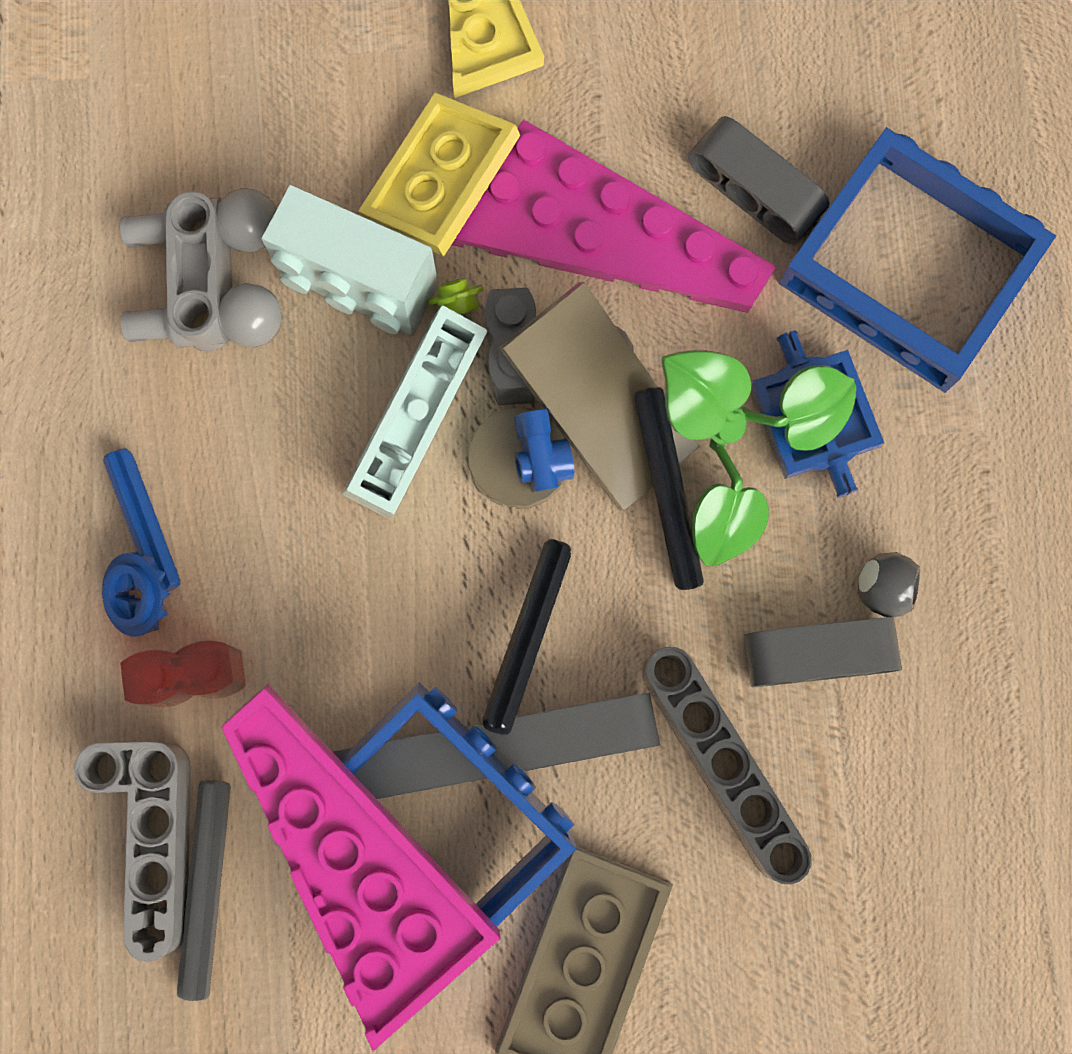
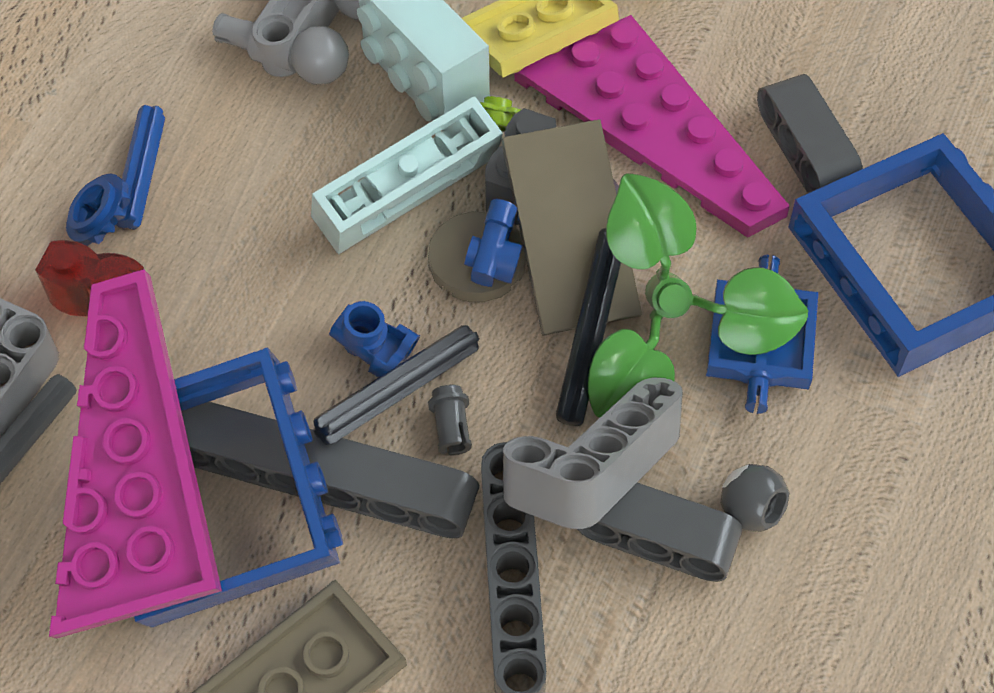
camera: 30 degrees right, 20 degrees down
(487, 597) = (367, 335): none -> blue plate
(588, 639) = (449, 407): none -> dark grey pin
(759, 613) = (590, 476): none -> light grey beam

